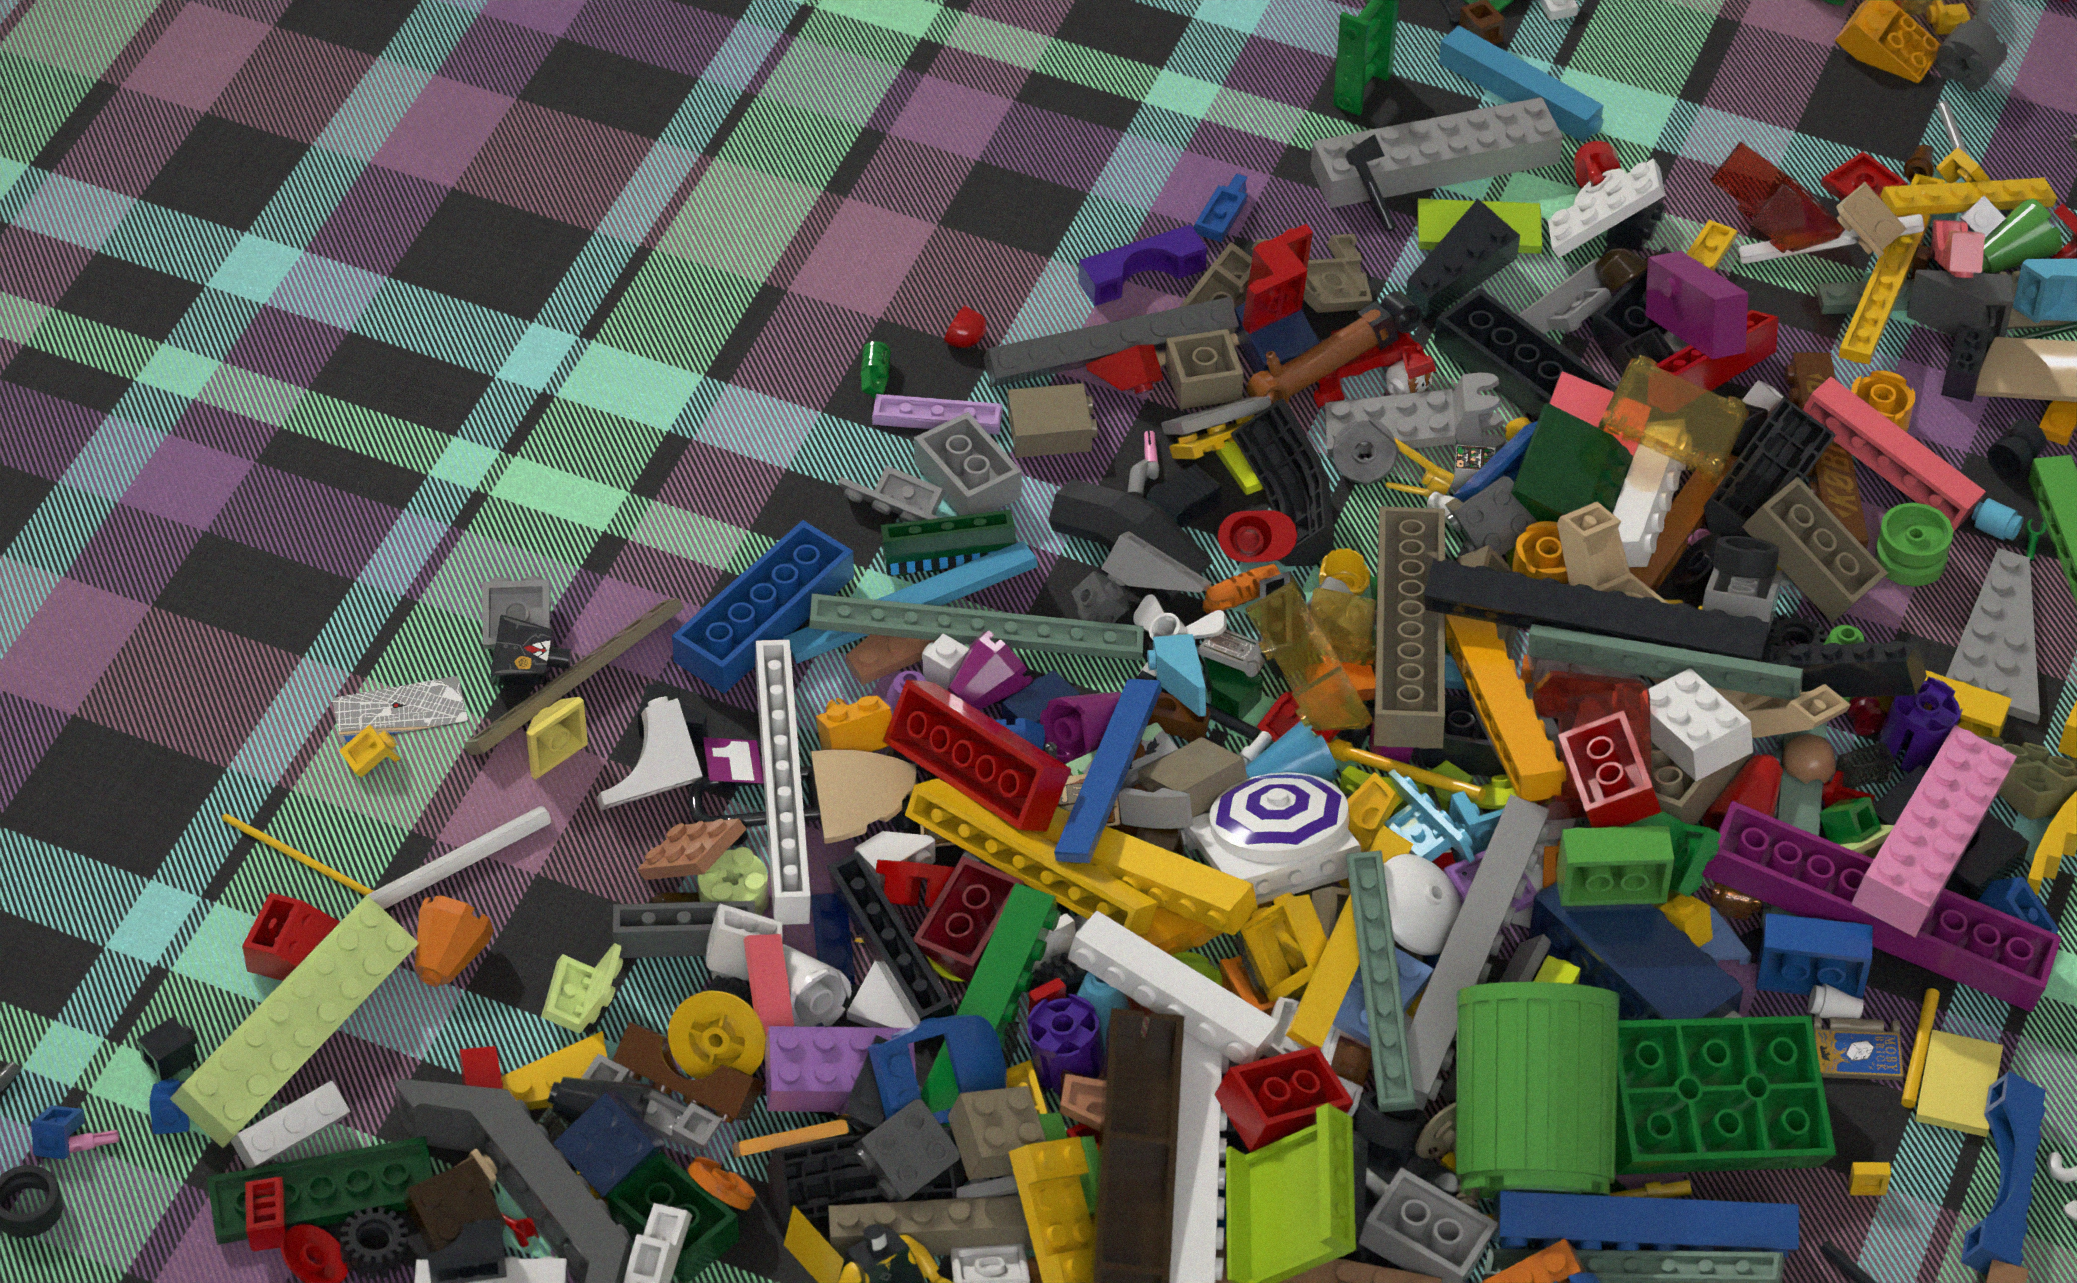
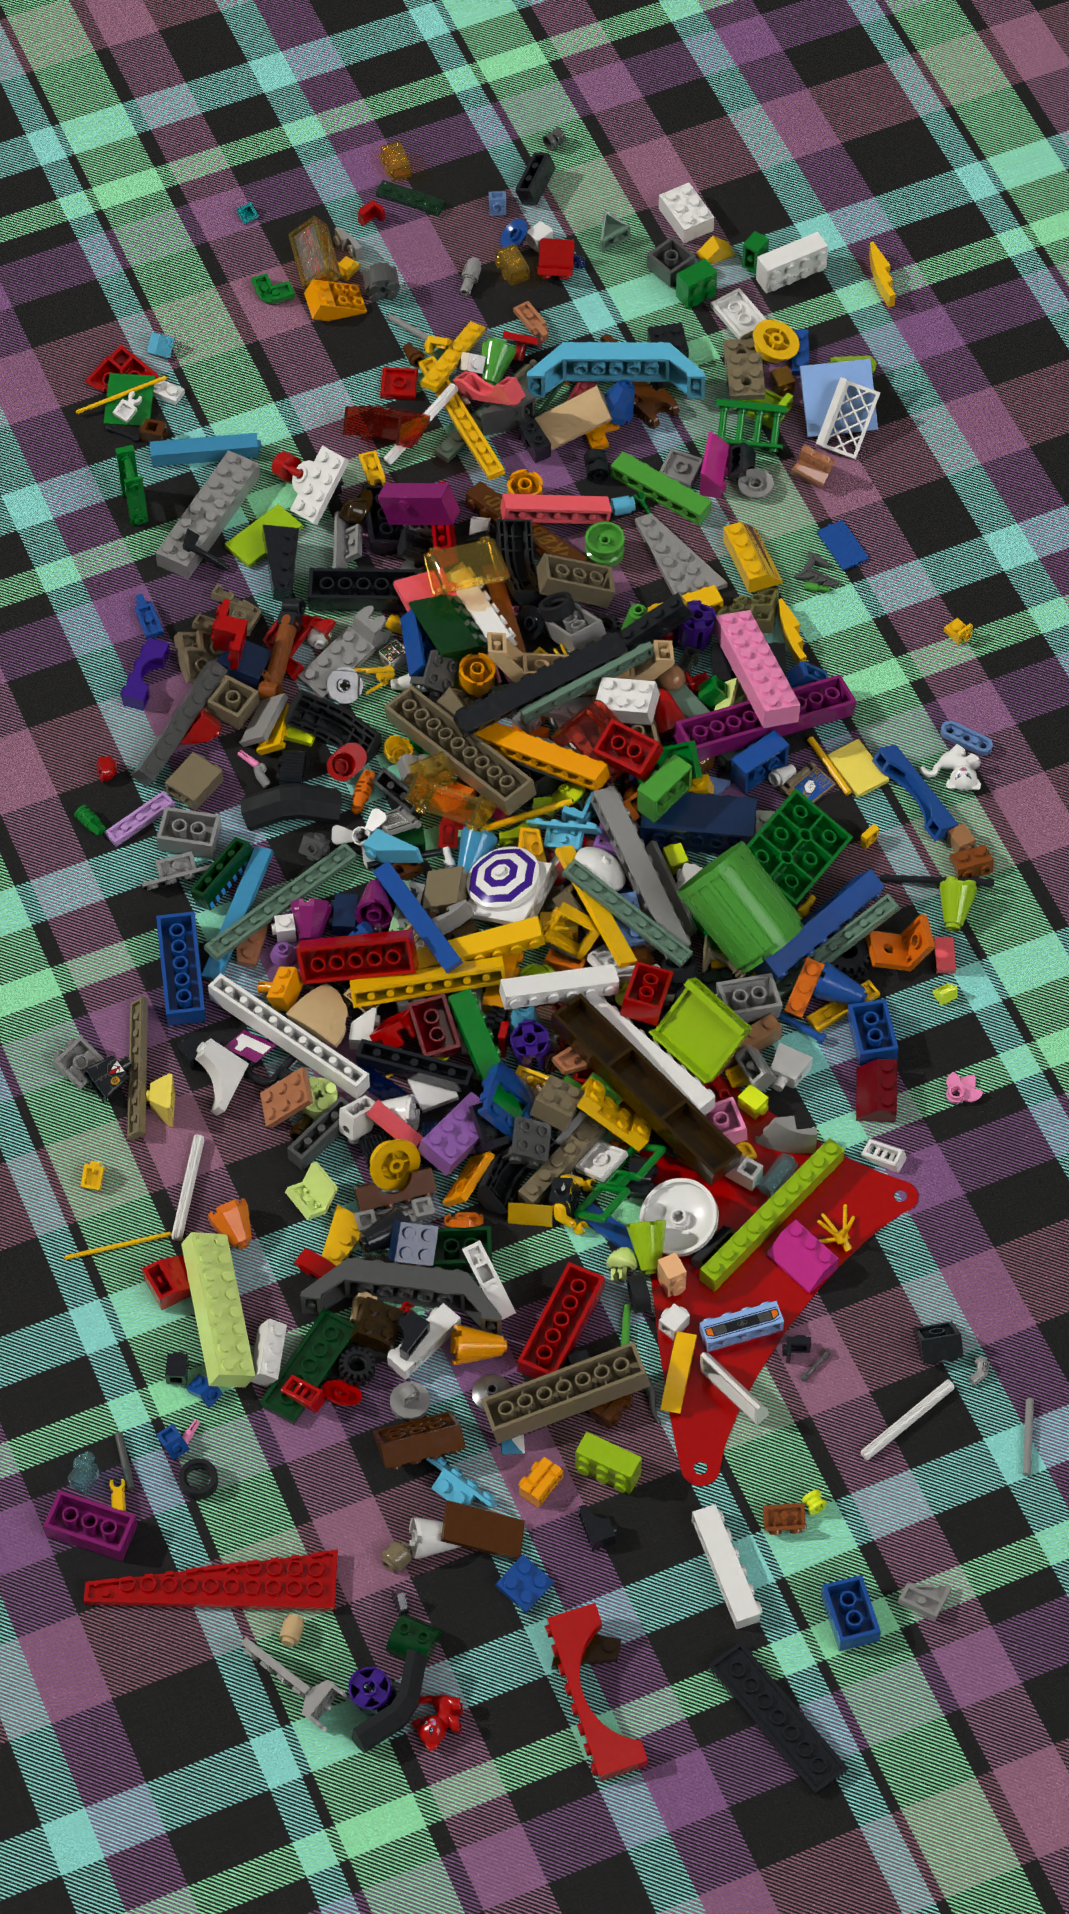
camera: 45 degrees left, 10 degrees up
(401, 708) = (77, 1147): light grey sticker -> none
(1143, 565) = (321, 815): light grey slope -> none
(1869, 219) = (437, 402): tan bracket -> none

